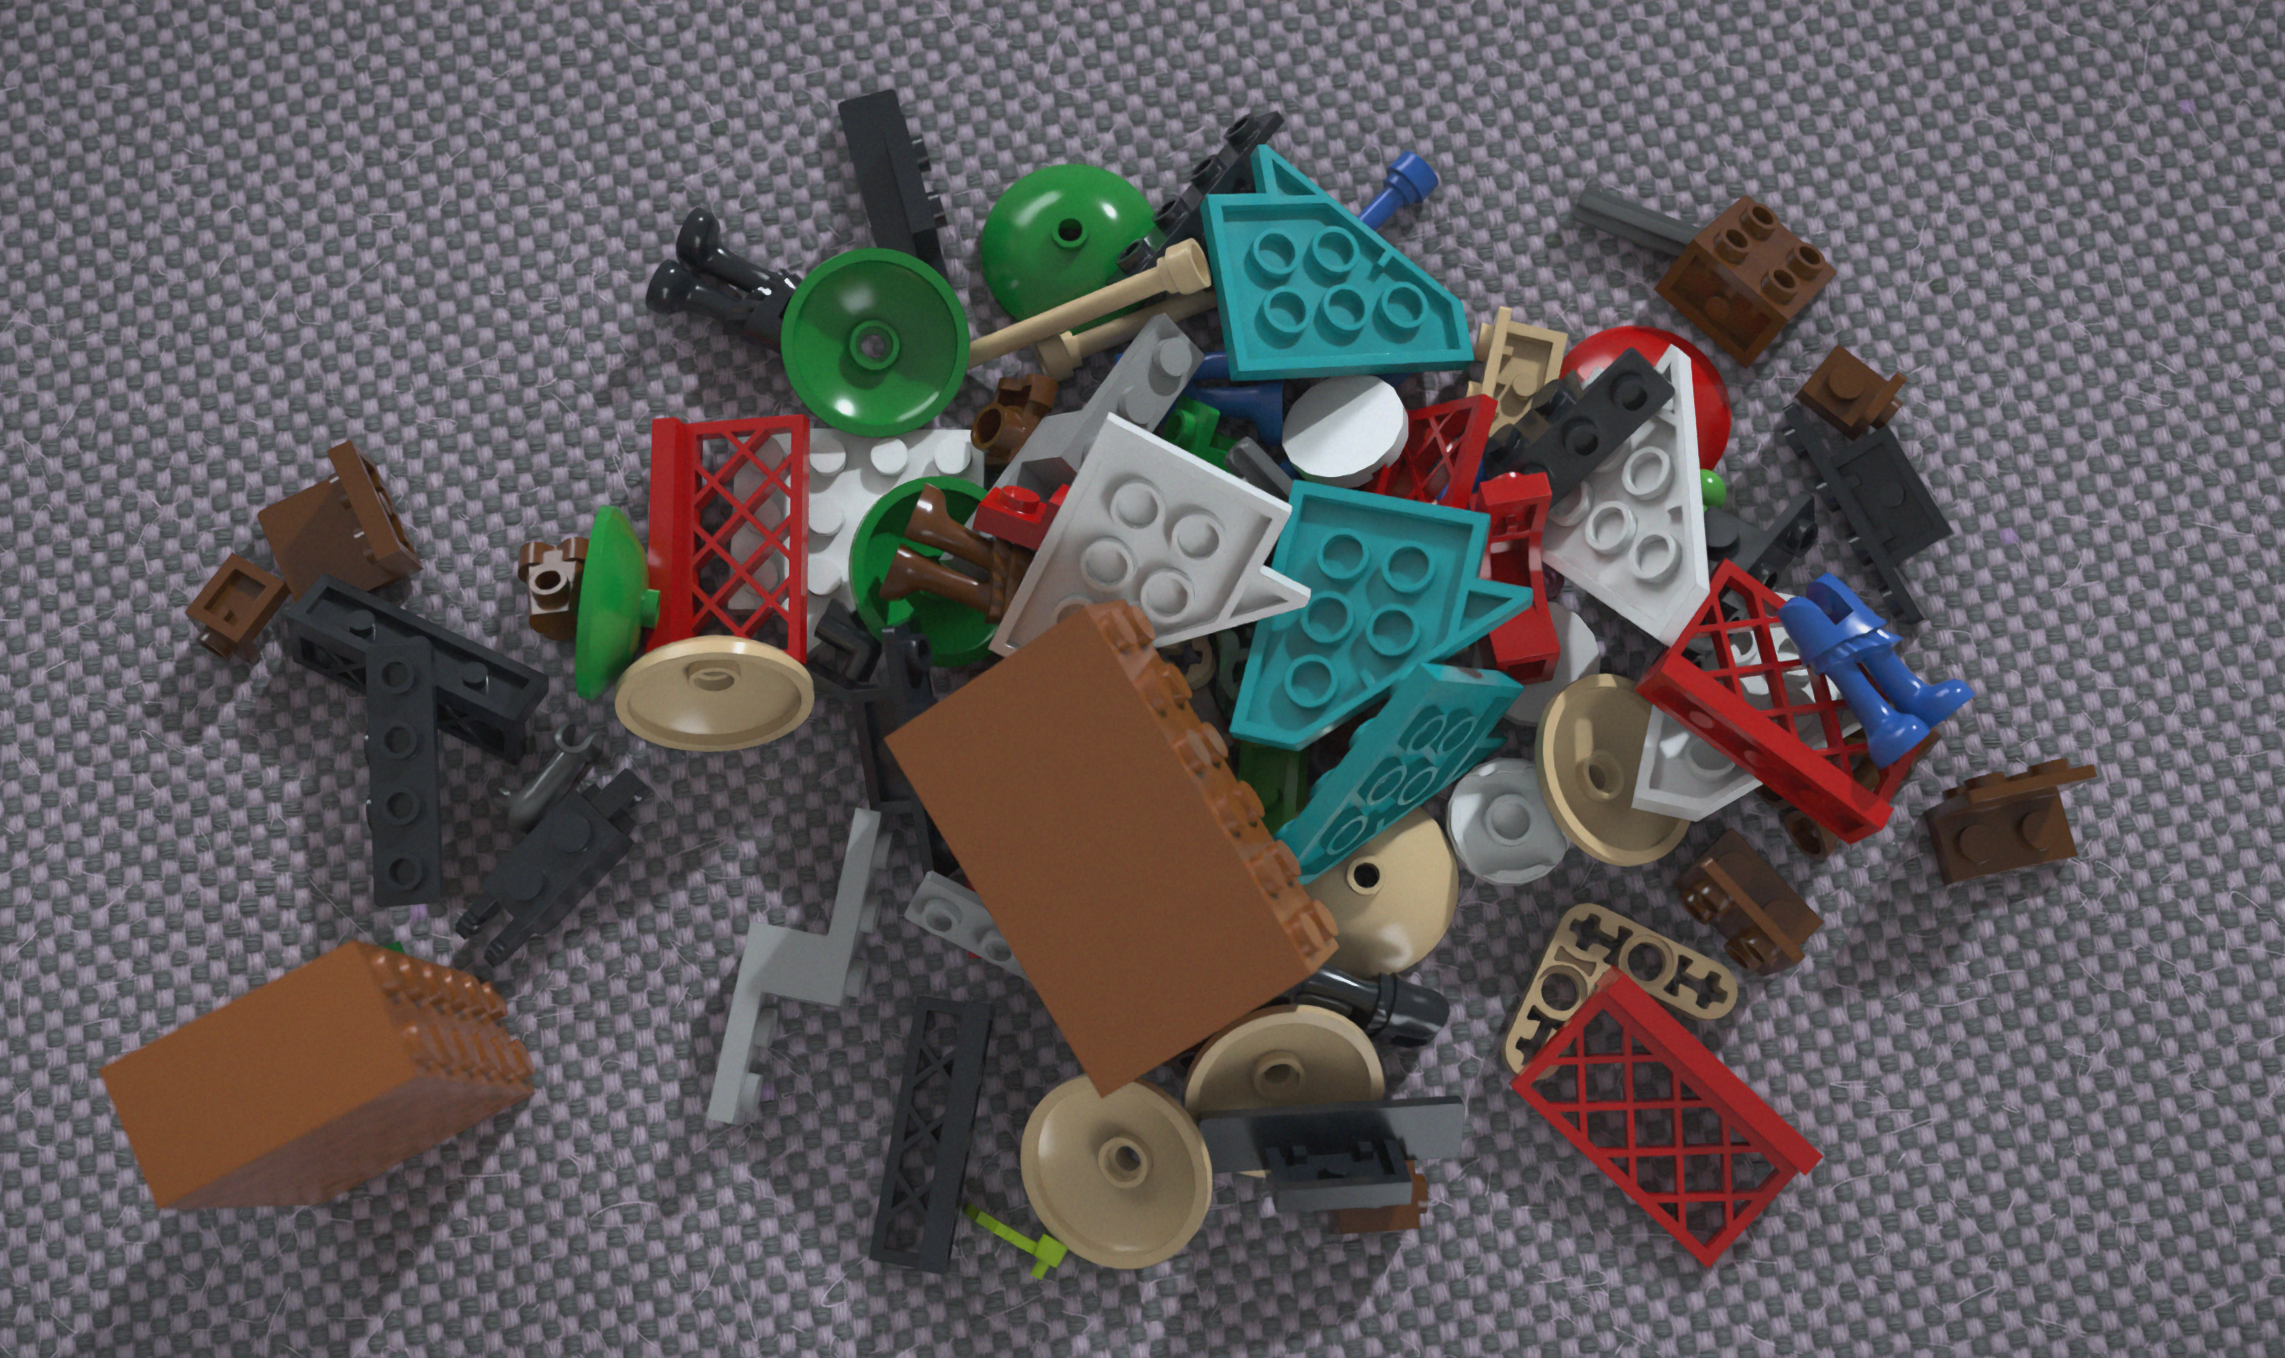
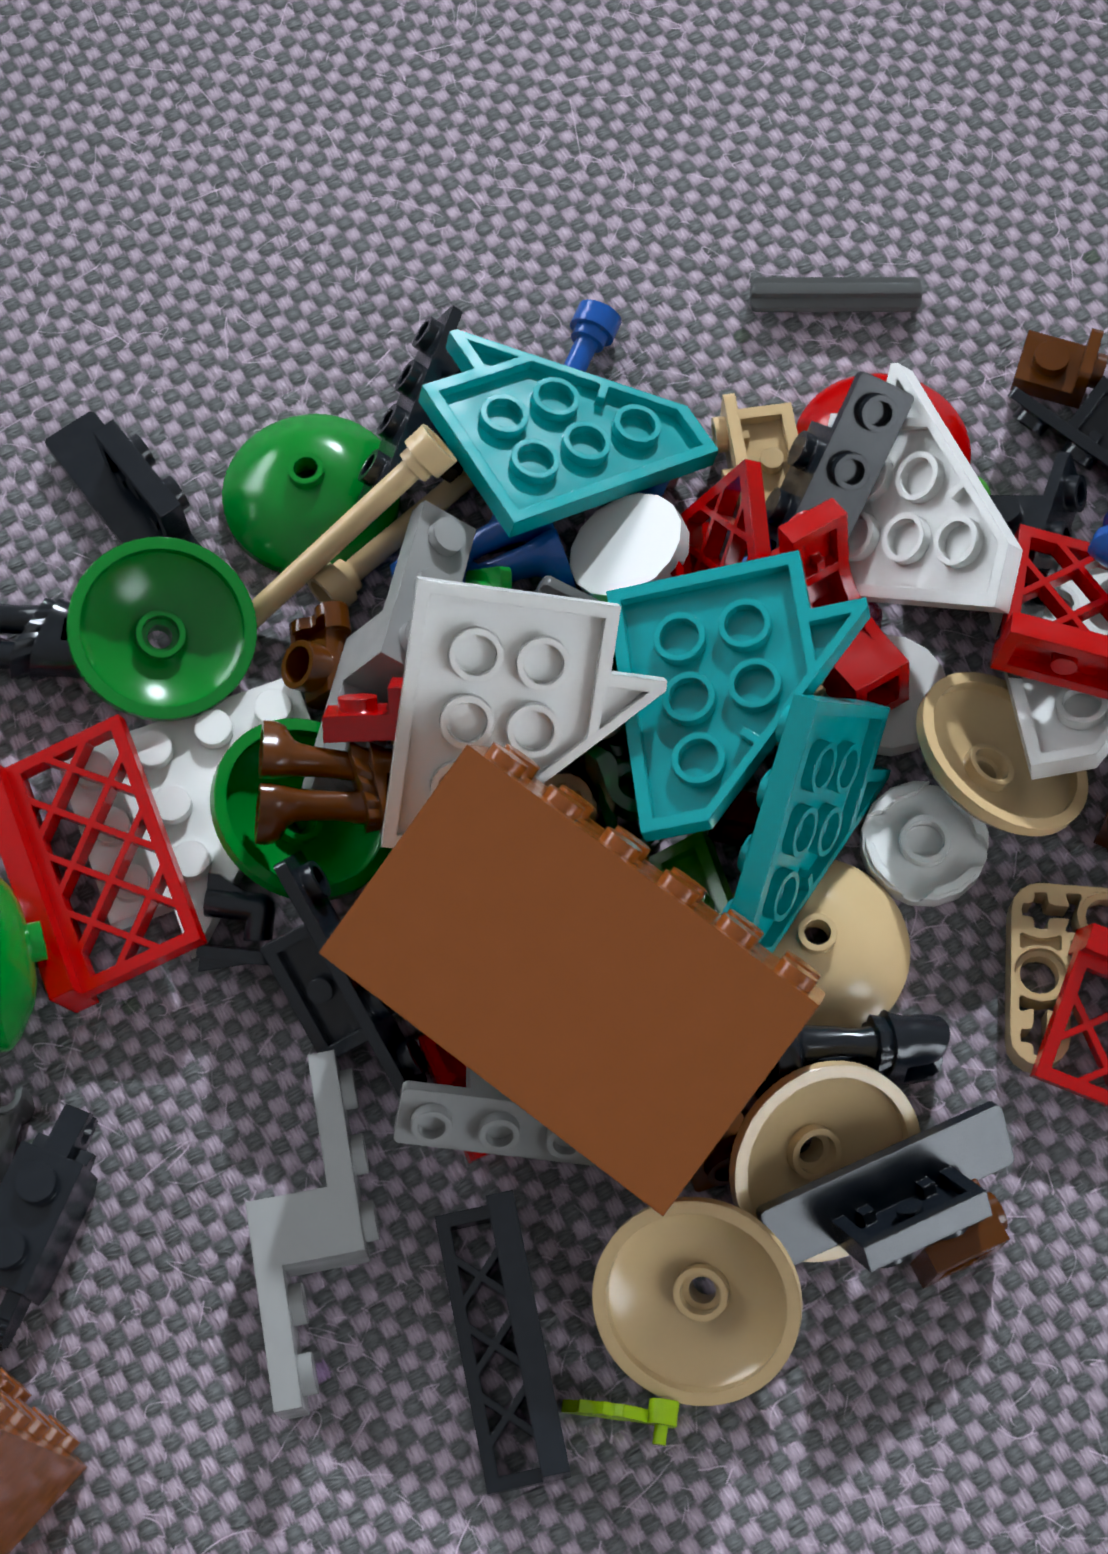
camera: 20 degrees left, 10 degrees down
(714, 694) = (129, 998): tan dish -> none
(1744, 279) = (923, 307): reddish brown bracket -> none

